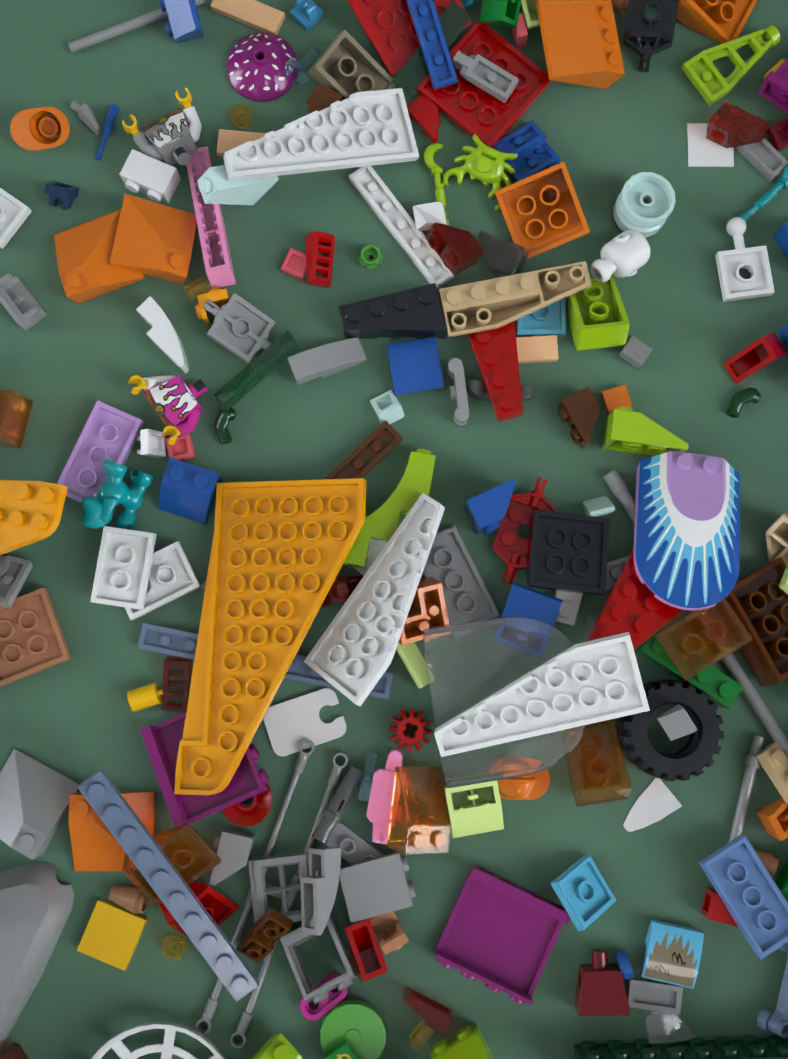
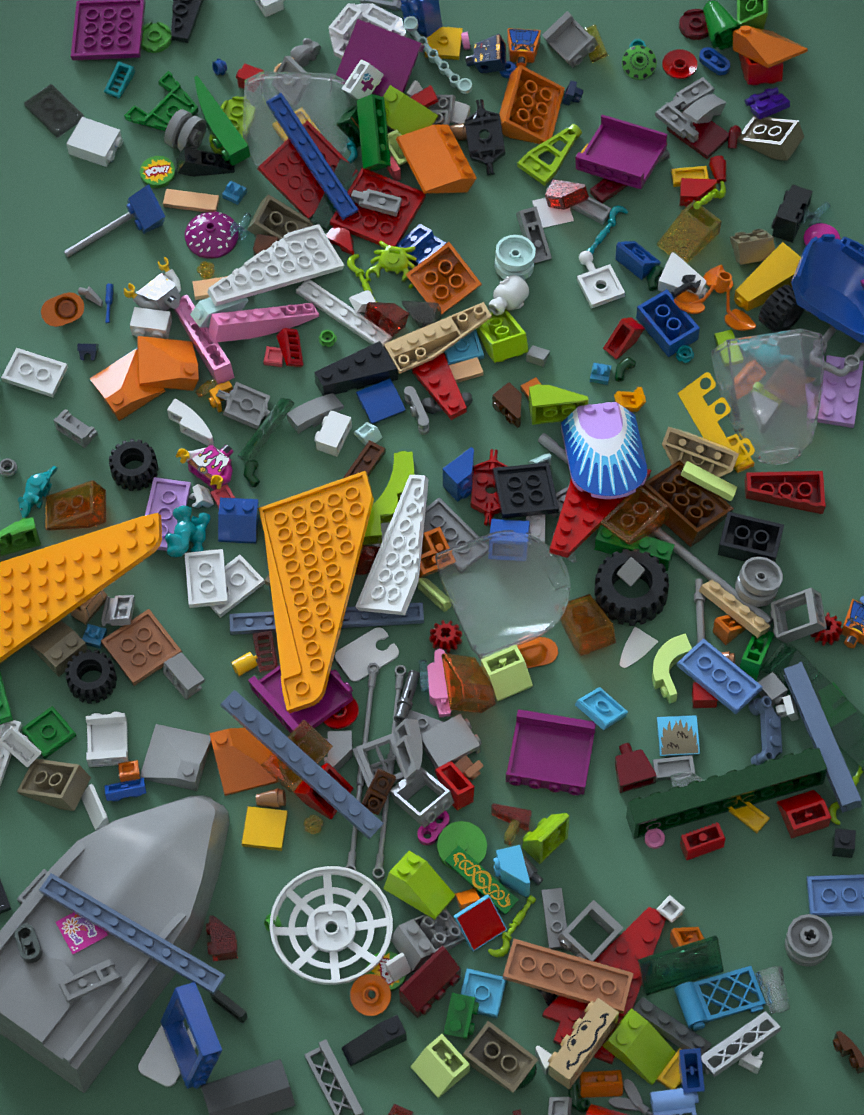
camera: 15 degrees left, 20 degrees down
(61, 362) = (130, 452): none -> black tyre
(63, 692) = (183, 675): none -> light grey hinge
(287, 212) = (258, 322): none -> bright pink slope
(342, 396) = (333, 433): none -> white brick
(571, 690) = (549, 566): white wing -> none
(624, 965) = (646, 748): blue tile -> none
(678, 171) = (532, 229): none -> light grey slope
(681, 845) = (664, 660): none -> yellowish green arch
(710, 400) = (600, 373): none -> dark azure tile
(740, 452) = (631, 400): none -> light orange bracket

